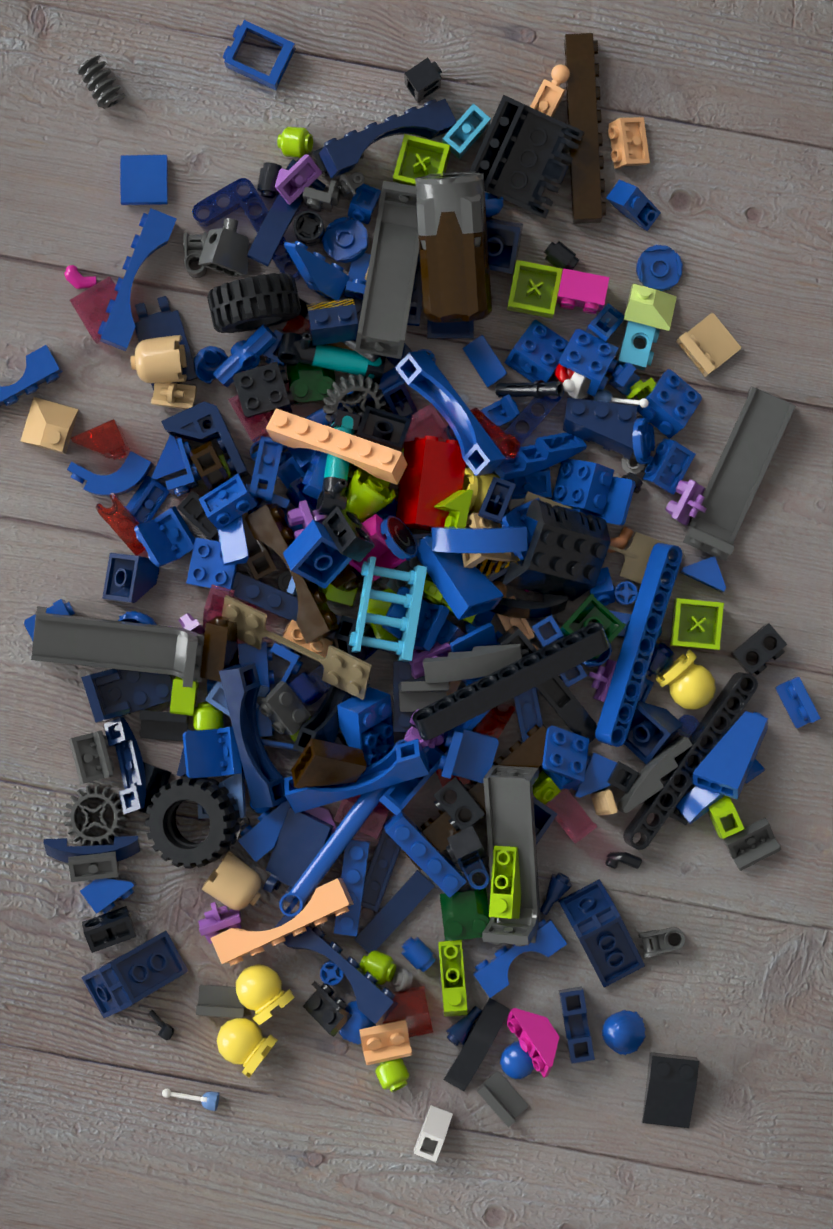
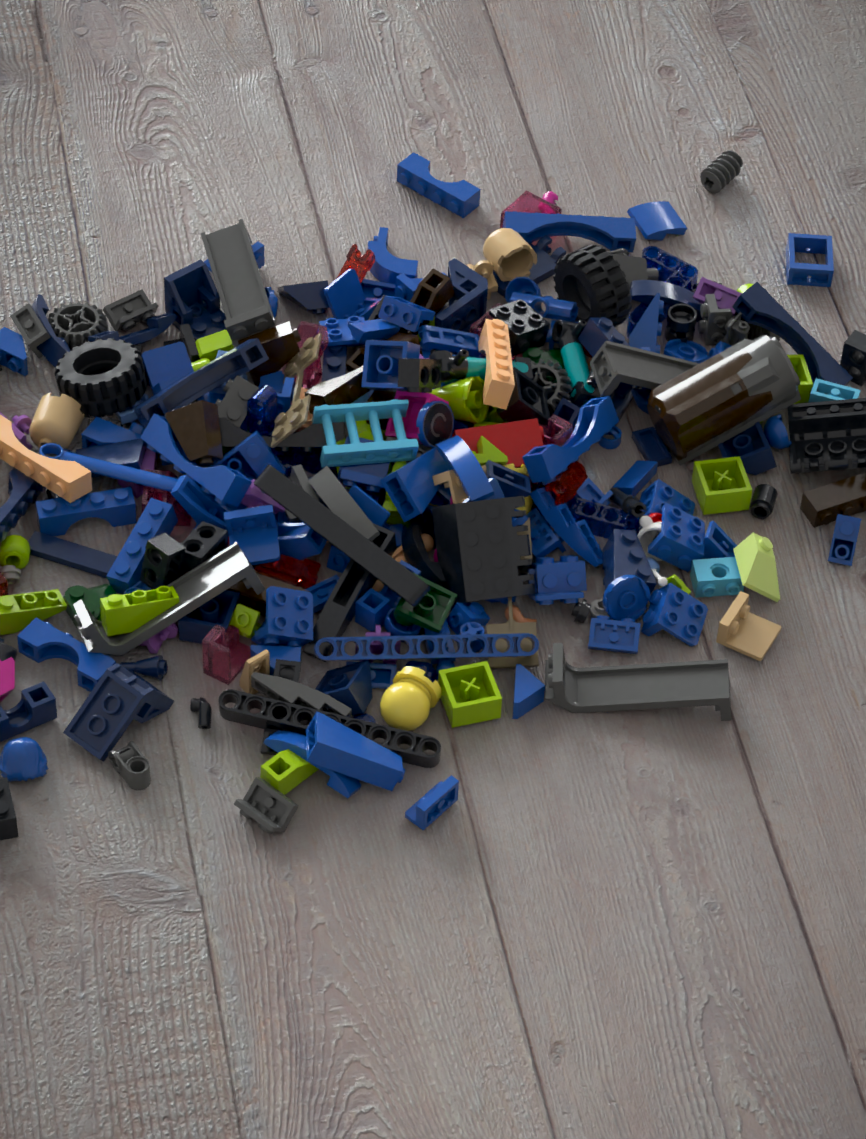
camera: 65 degrees right, 40 degrees down
(49, 425) = (412, 219): tan slope -> none
(104, 440) = (420, 241): clear red slope -> none
(380, 871) = (100, 534): dark blue tile -> none
(418, 954) = (40, 578): blue brick -> none
(582, 291) = (740, 511): dark pink piece -> none
(623, 378) = (680, 566): blue bracket -> none
(659, 268) = (799, 579): blue tile -> none
(689, 503) = (587, 654): medium lavender hips -> none
(756, 645) = (470, 756): black brick -> none

